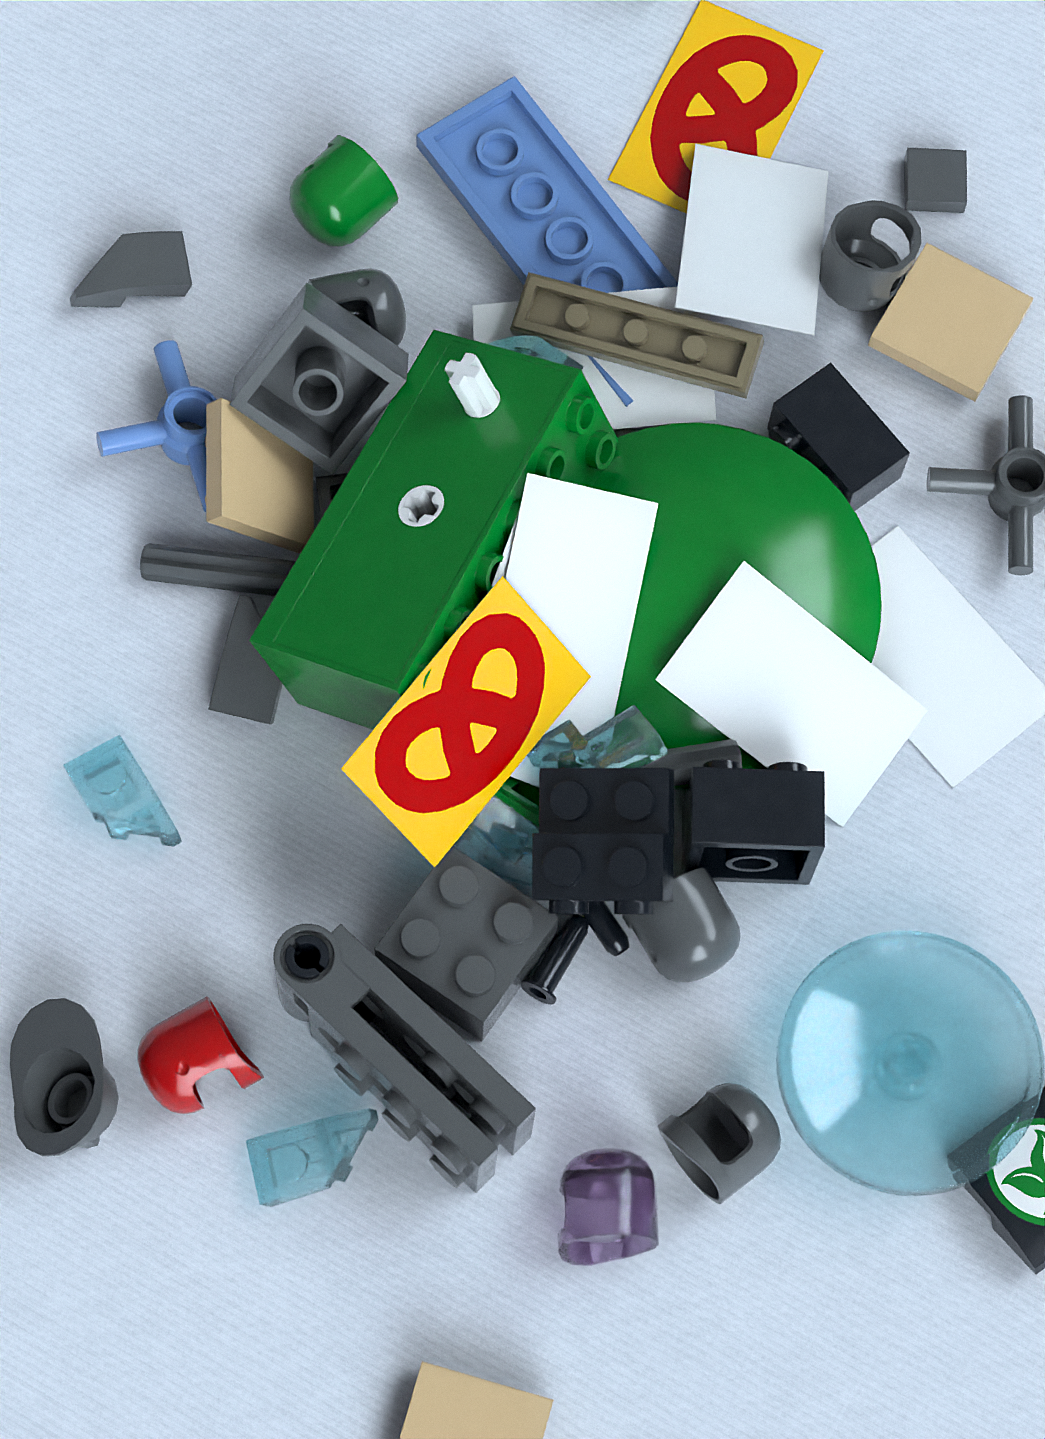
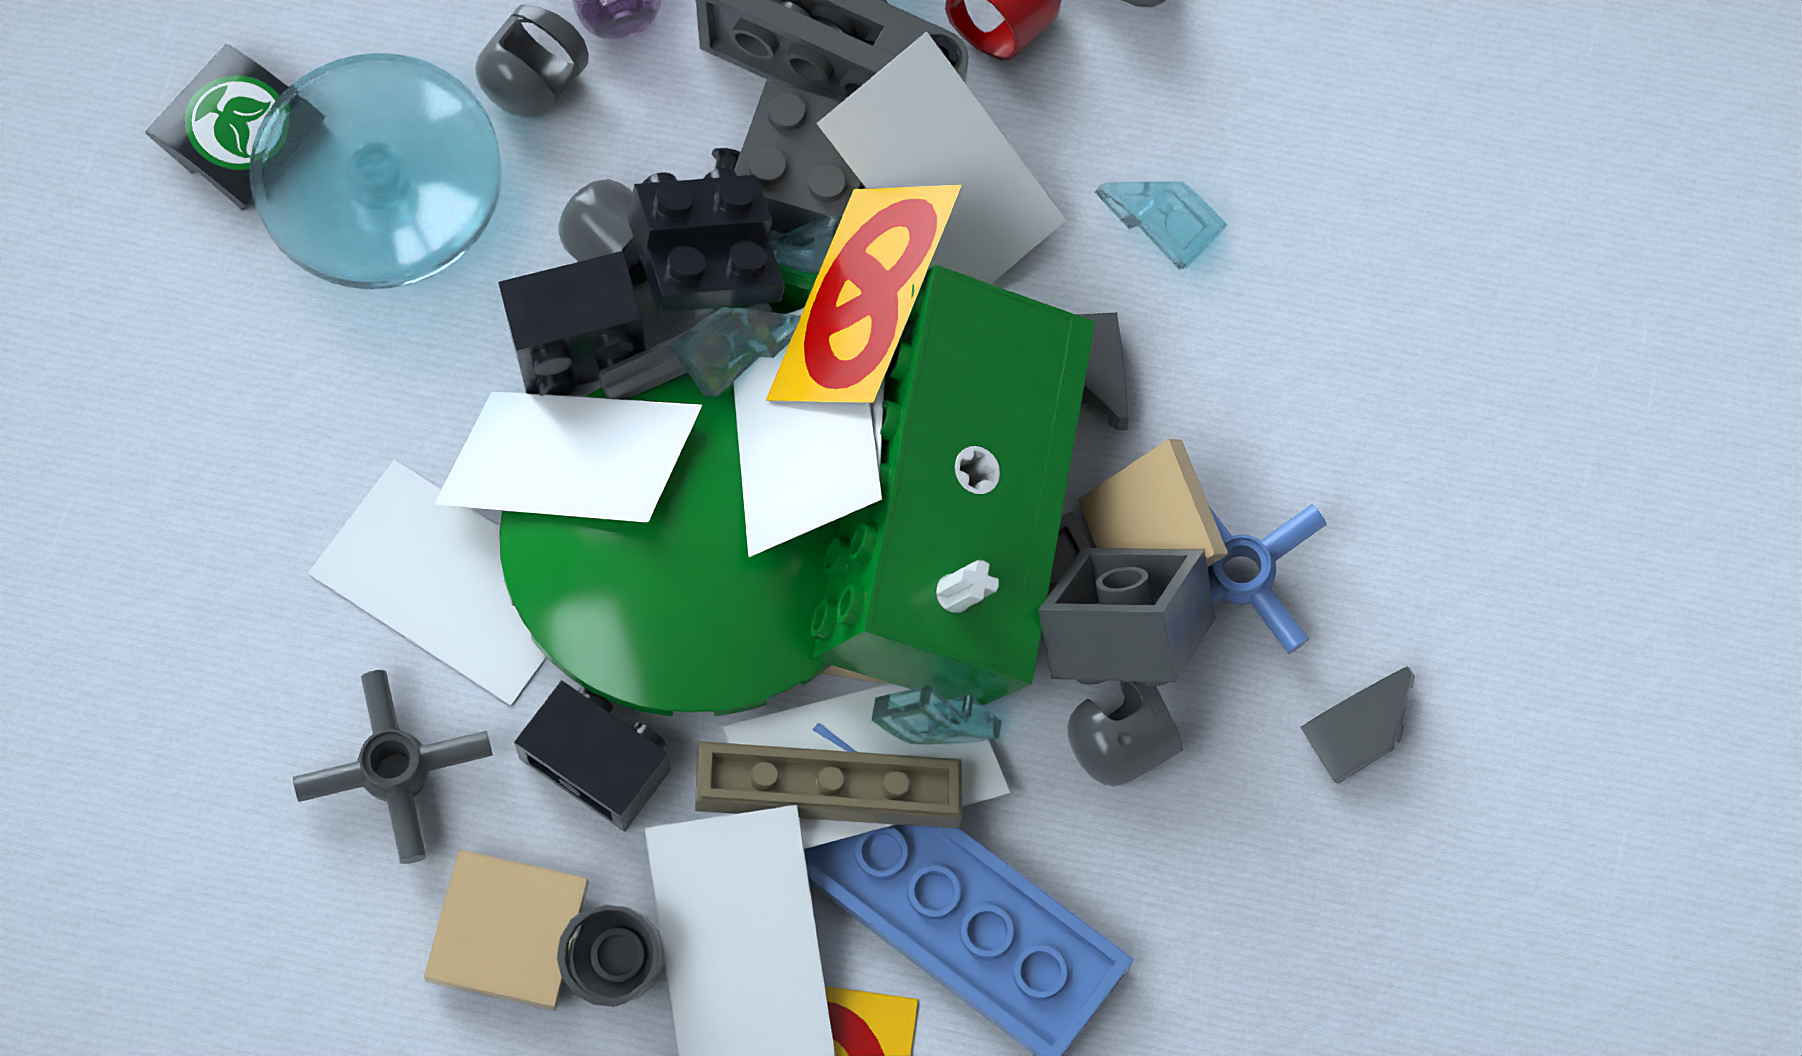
camera: 165 degrees right, 0 degrees up
(213, 569) = (1112, 455): dark grey axle -> none
(337, 867) = (927, 128): none -> white sticker
(341, 194) = (1191, 849): green helmet -> none

